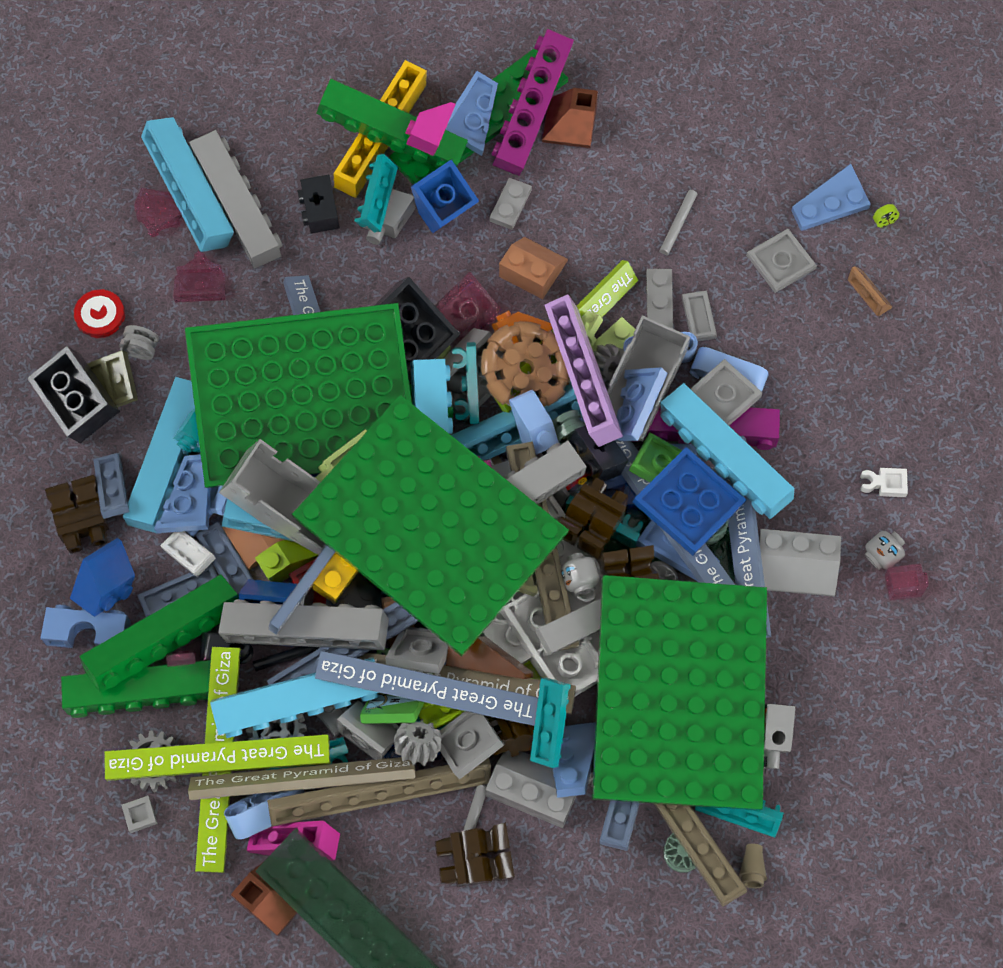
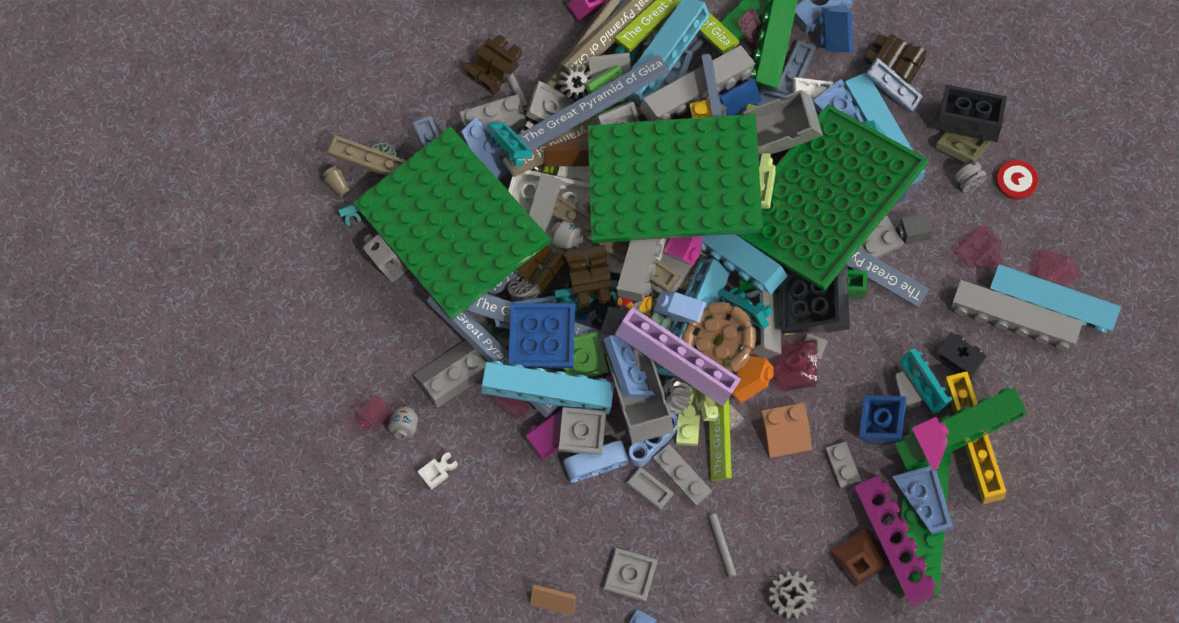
camera: 140 degrees right, 0 degrees up
(658, 135) = (800, 596): none -> light grey gear

